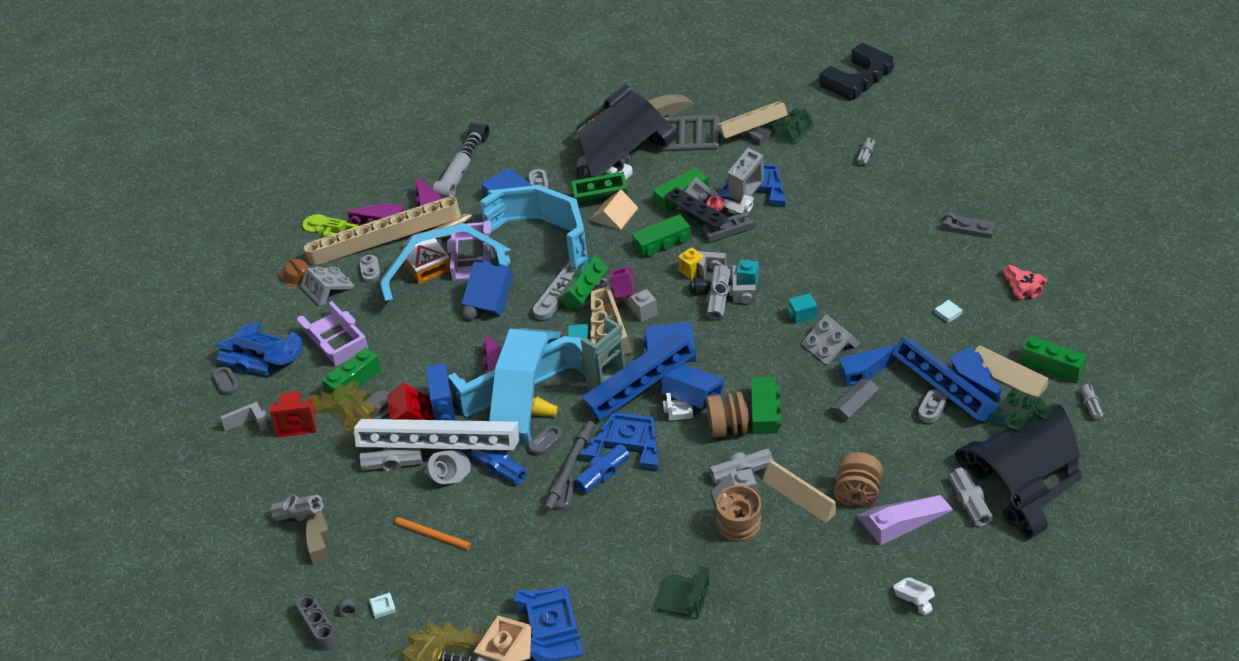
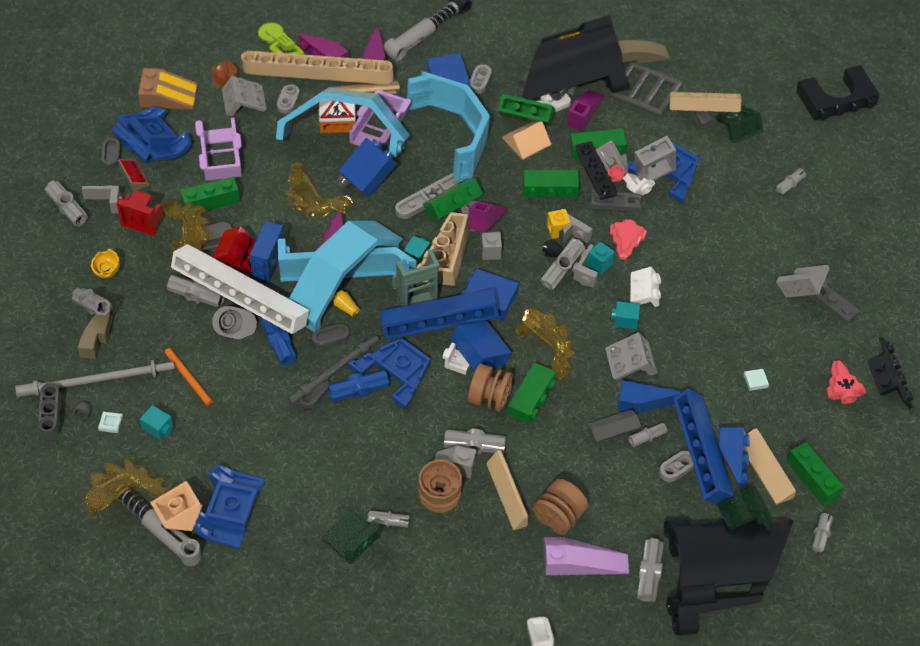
camera: 20 degrees right, 10 degrees up
(211, 439) = (66, 203): none -> light grey piece
(247, 307) = (166, 90): none -> medium nougat slope
(260, 390) = (133, 174): none -> slope
(286, 469) = (103, 262): none -> yellow hair
(289, 608) = (35, 387): none -> light grey bar
(430, 584) = (156, 422): none -> teal brick
(445, 339) = (306, 197): none -> clear yellow animal
(649, 169) = (584, 109): none -> magenta slope
(710, 562) = (388, 518): none -> light grey axle
(752, 350) = (547, 329): none -> clear yellow animal
(757, 249) = (626, 237): none -> coral rock
(800, 280) = (645, 286): none -> white bracket
(888, 393) = (647, 434): none -> light grey axle
(935, 218) = (804, 281): none -> light grey bracket
(1054, 260) = (887, 375): none -> black bracket

